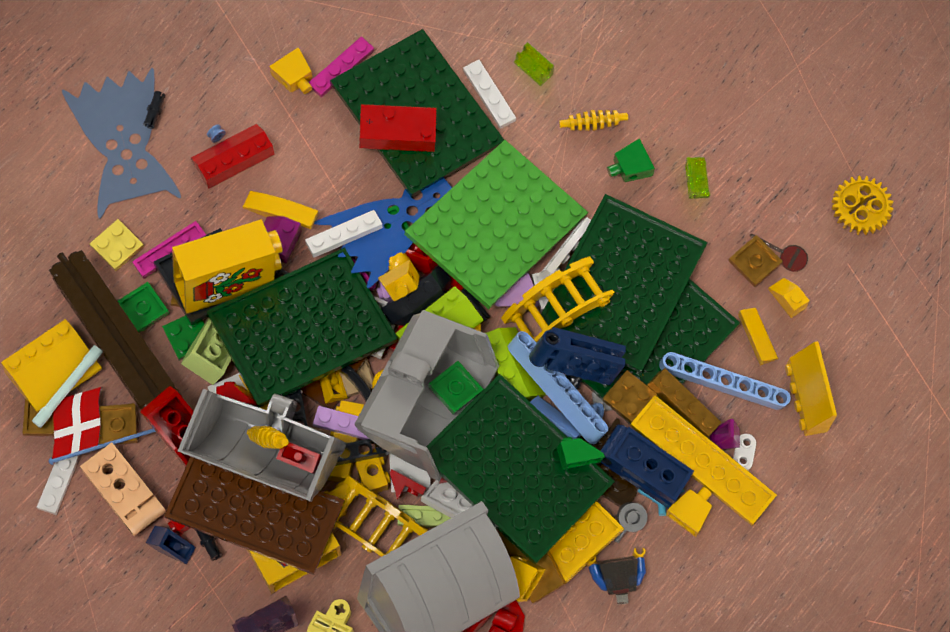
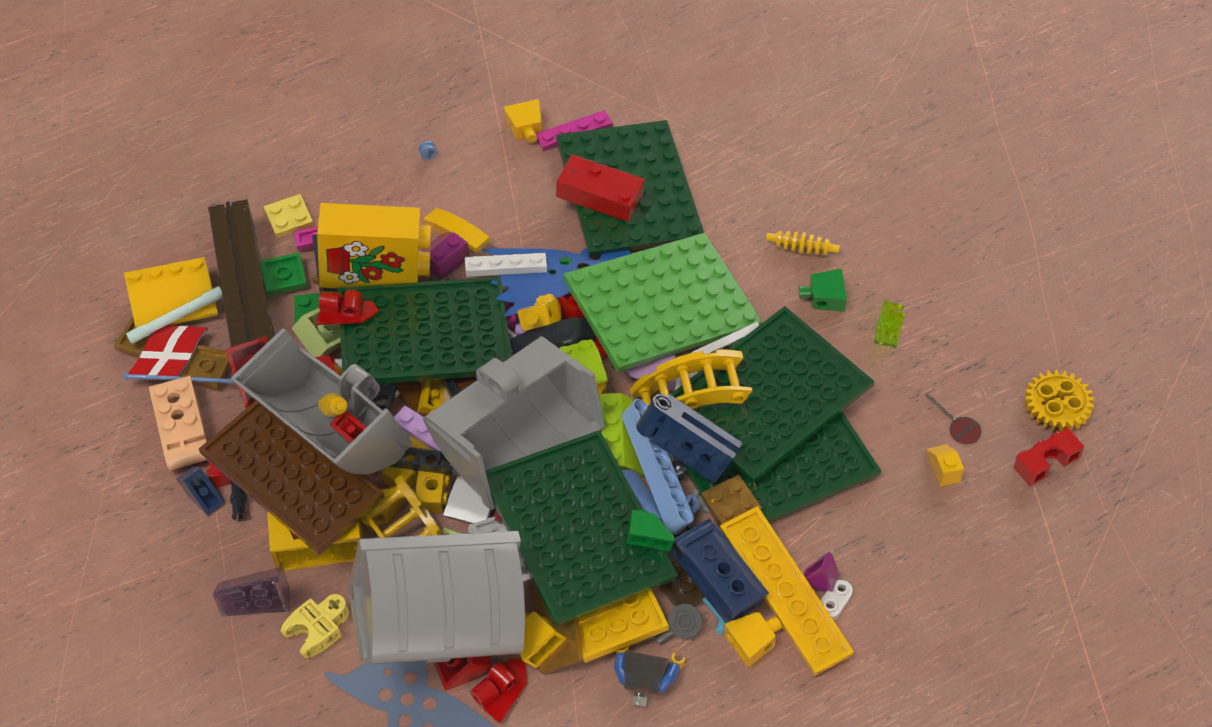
camera: 25 degrees right, 15 degrees down
(57, 485) = (124, 401): white plate -> none
(100, 115) = (325, 110): sand blue piece -> none
(154, 110) = (380, 115): black pin -> none
(225, 333) = (344, 309): none -> red panel
(233, 155) = (434, 175): red slope -> none
(400, 481) = (455, 506): red slope -> none
(455, 387) = (547, 426): green plate -> none
(476, 304) = (609, 369): black pin -> none
(489, 94) = (708, 193): white plate -> none
(534, 64) = (763, 179): clear neon green hinge -> none
(683, 402) = (786, 523): pearl gold brick -> none
(733, 378) = (846, 528): light blue beam -> none
(755, 261) = (921, 418): pearl gold plate -> none
(757, 336) = (896, 490): yellow slope -> none
(811, 390) = (931, 557): yellow slope -> none
(879, 249) = (1060, 446): none -> red arch

